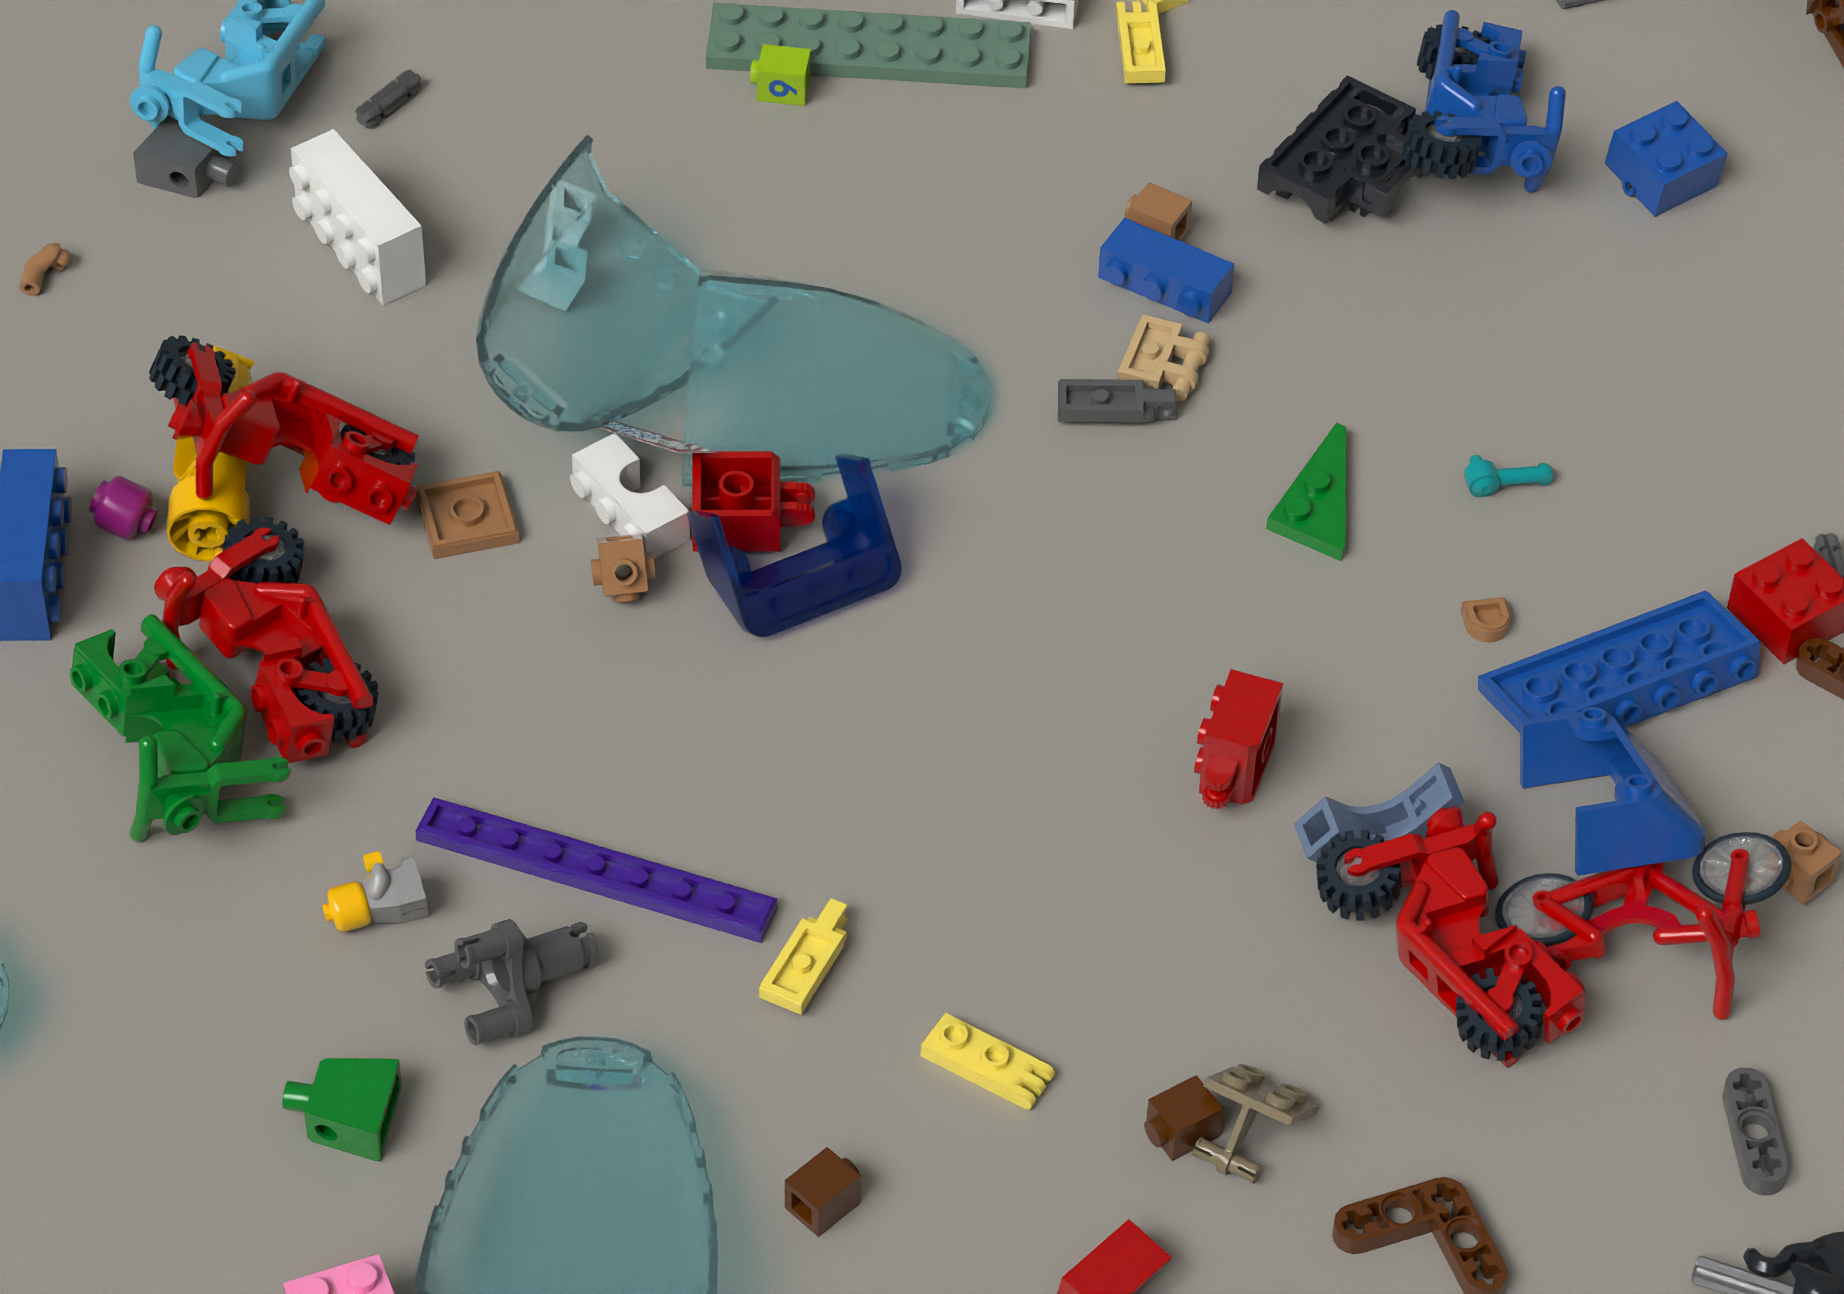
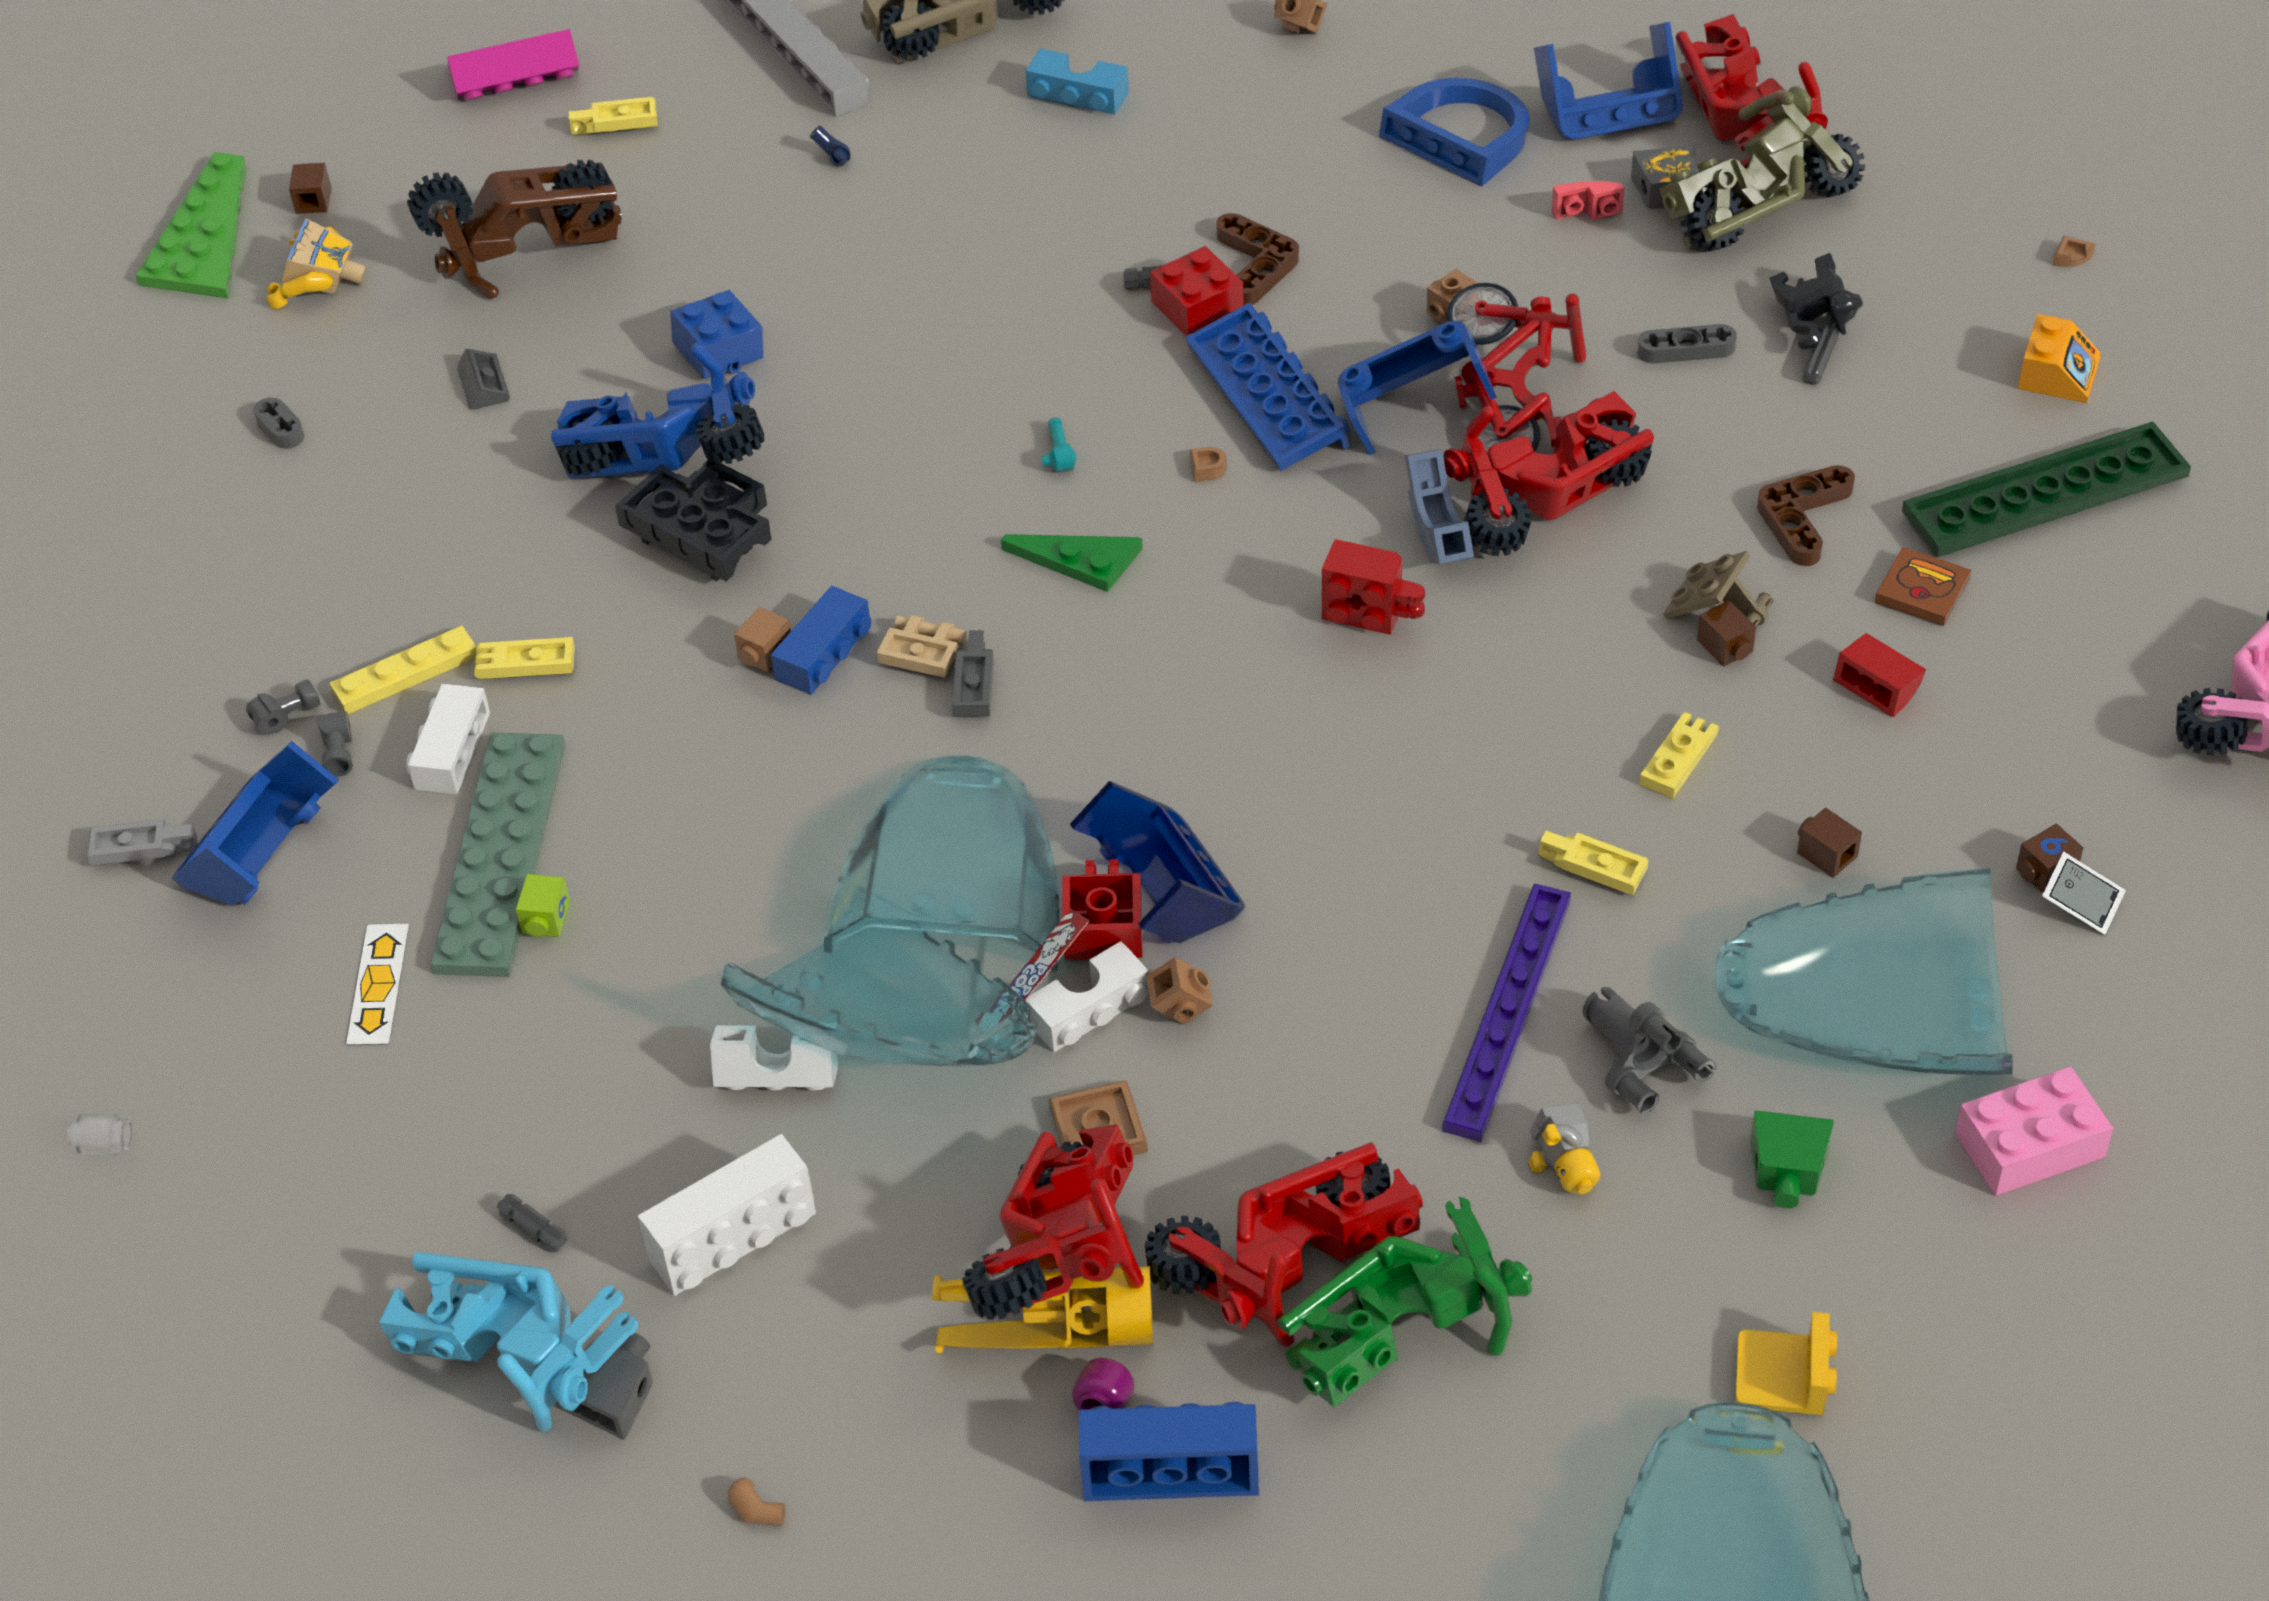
camera: 85 degrees left, 0 degrees up
(64, 1075) = (1787, 1369): none -> yellow bracket

